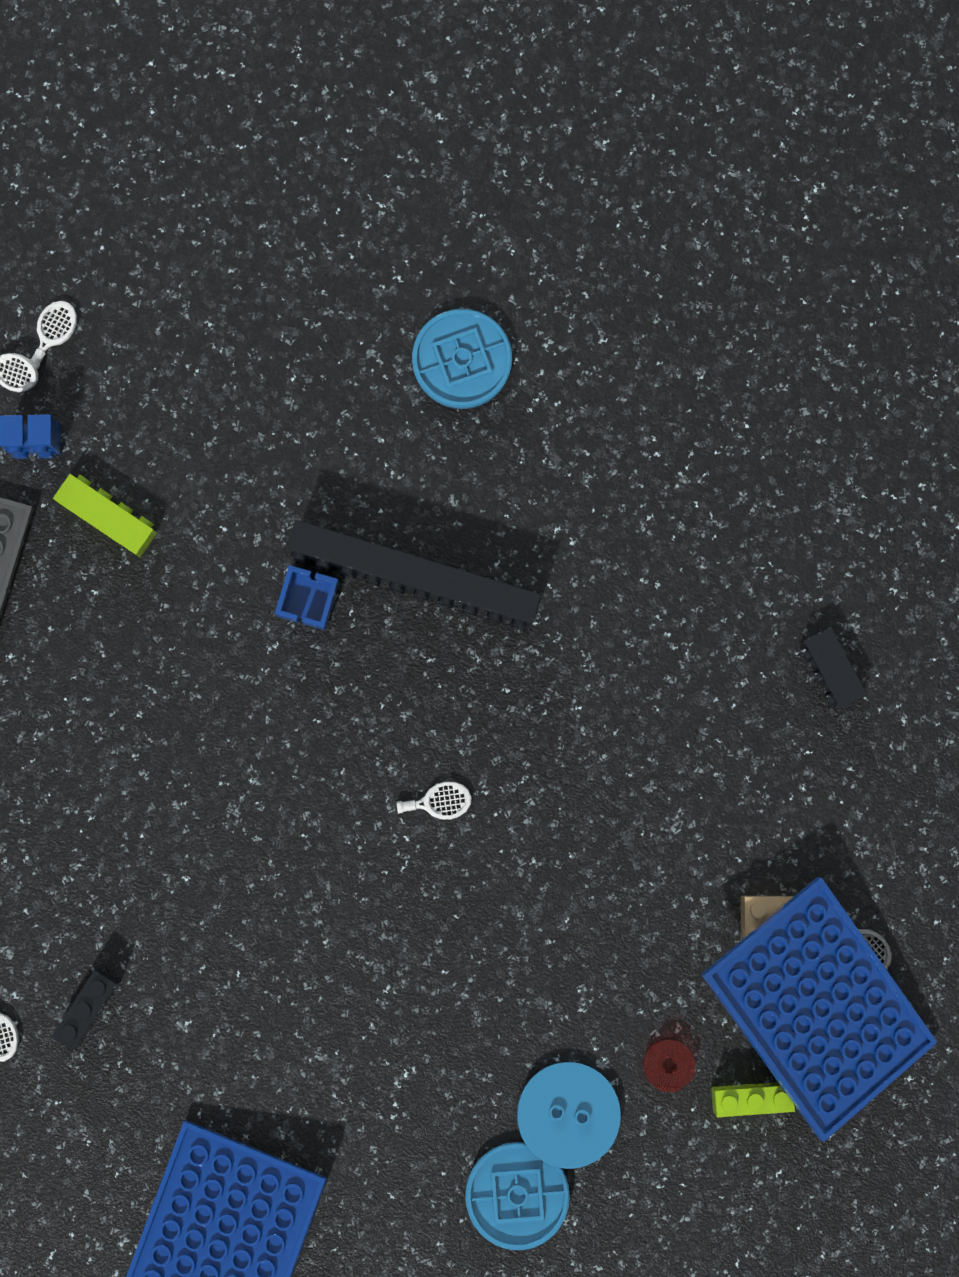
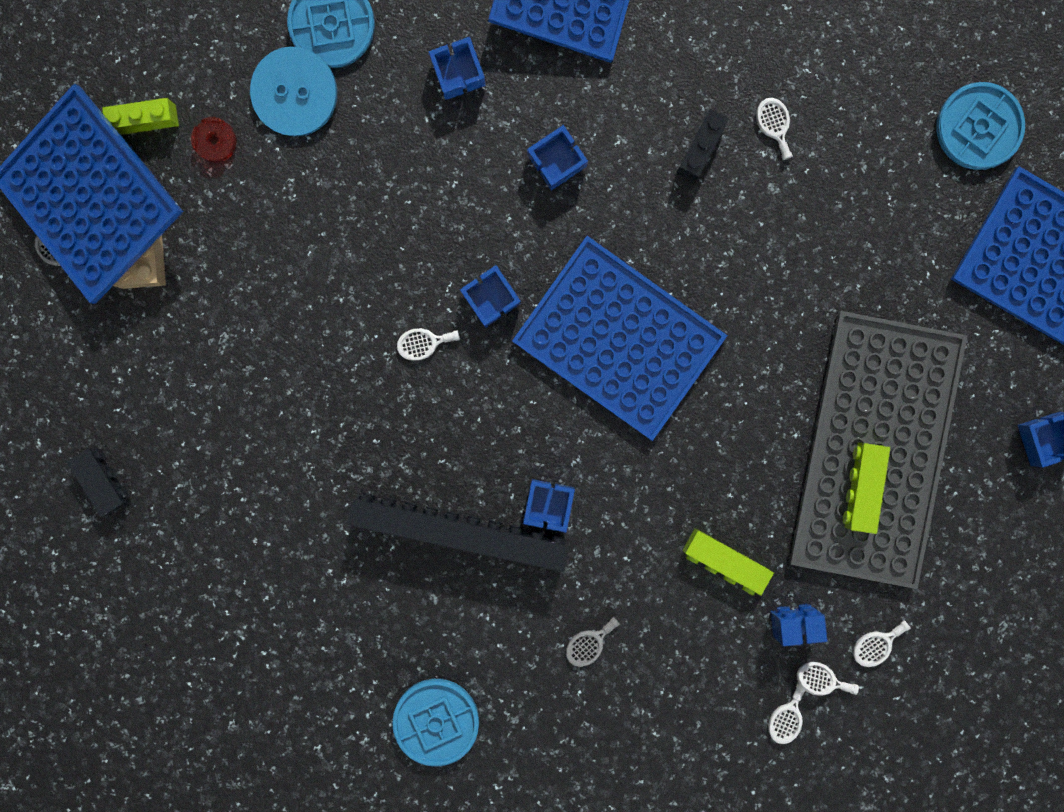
camera: 175 degrees left, 5 degrees up
(207, 788) = (619, 338): none -> blue plate
(254, 448) = (606, 630): none -> light grey piece
(260, 1007) = (555, 157): none -> blue piece
(353, 848) = (490, 296): none -> blue piece
(369, 1125) = (457, 70): none -> blue piece

